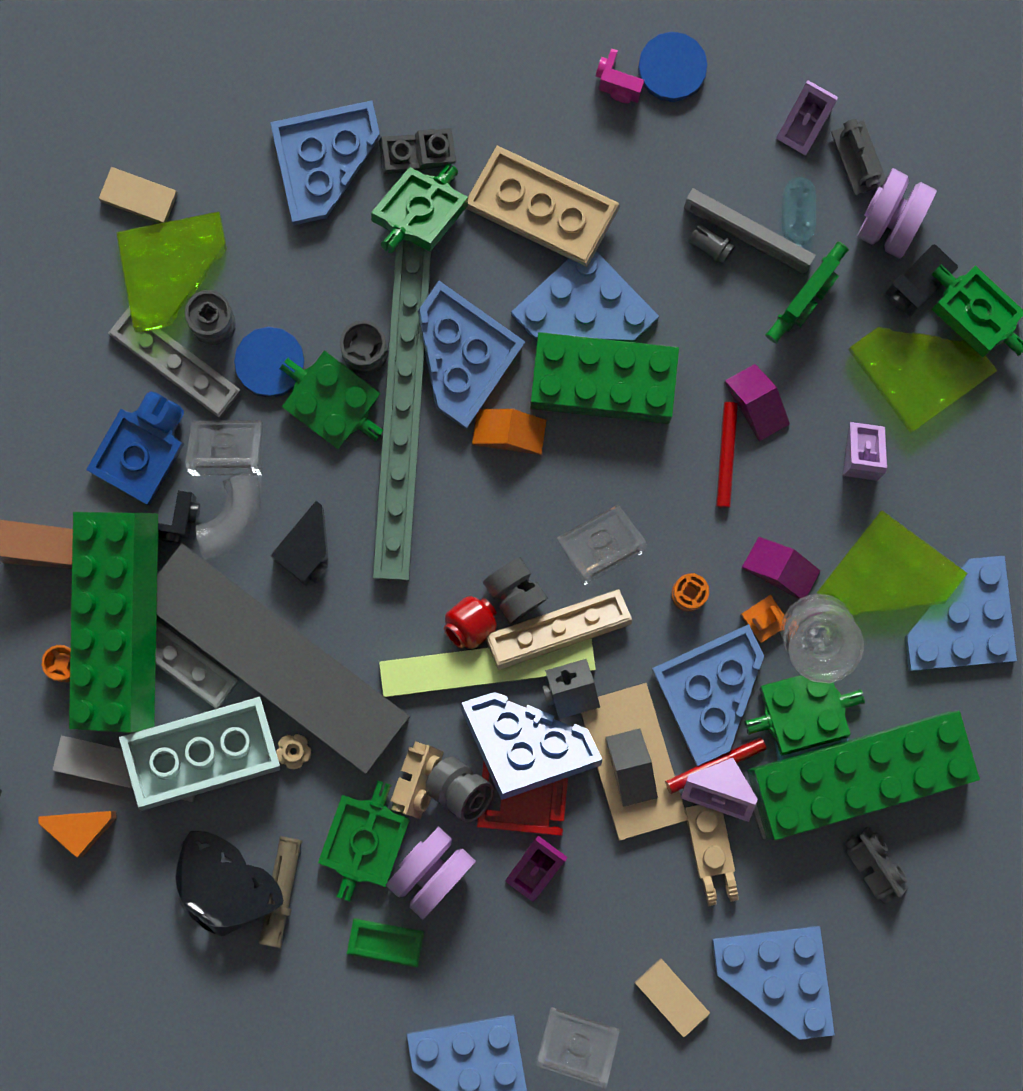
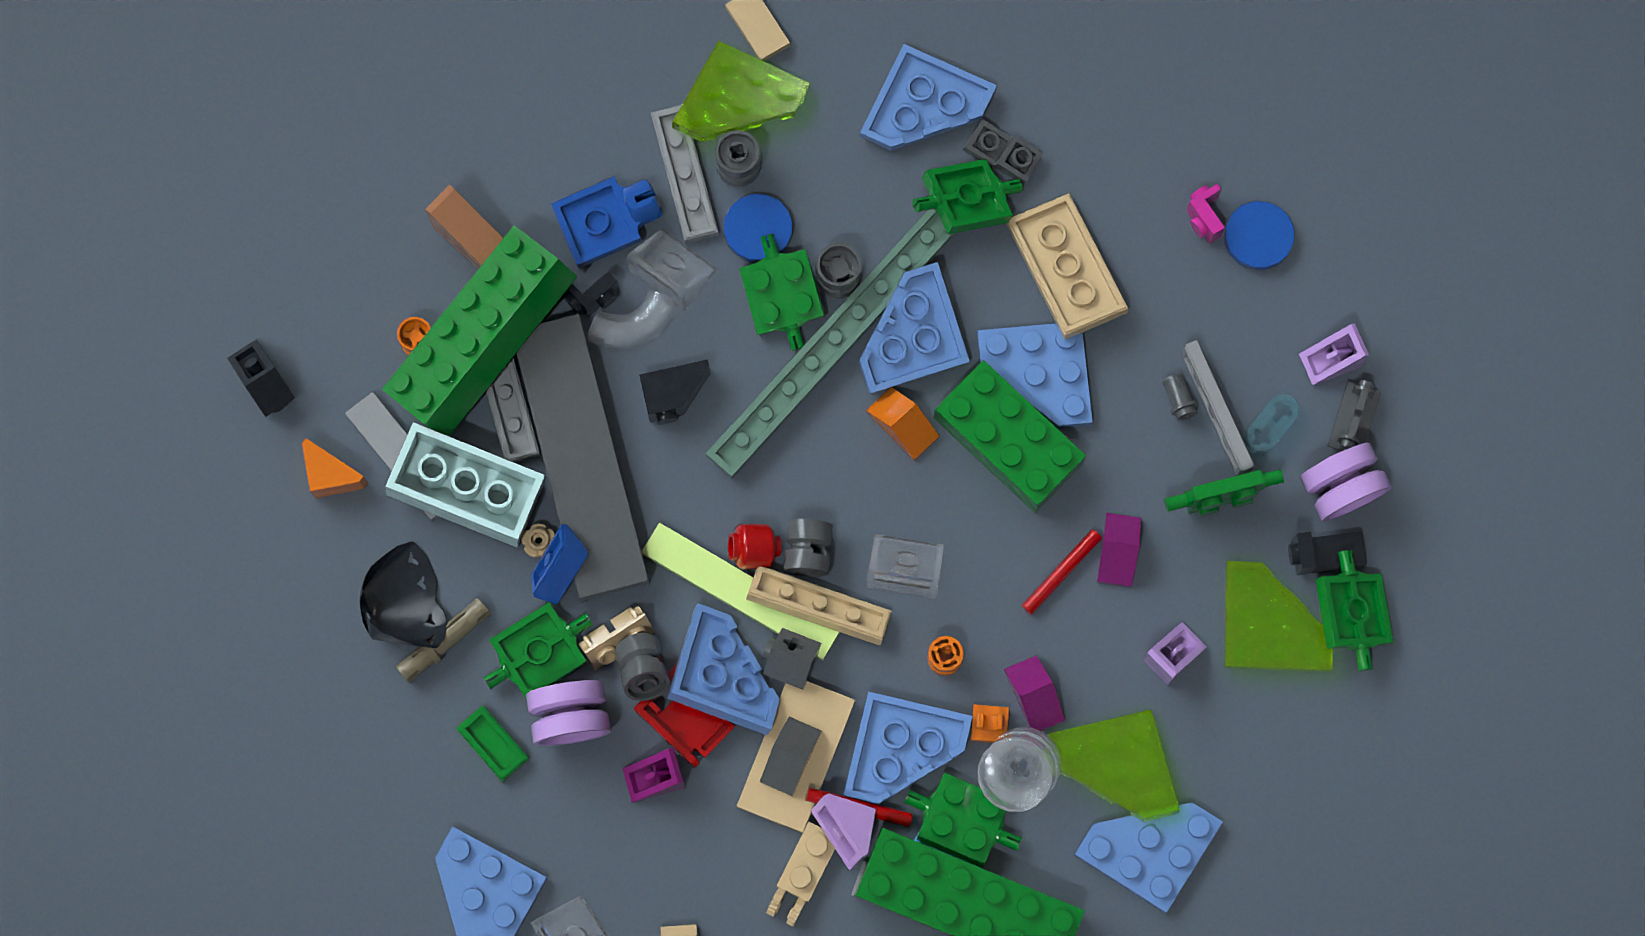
camera: 45 degrees right, 5 degrees down
(327, 760) = (558, 565): none -> blue slope

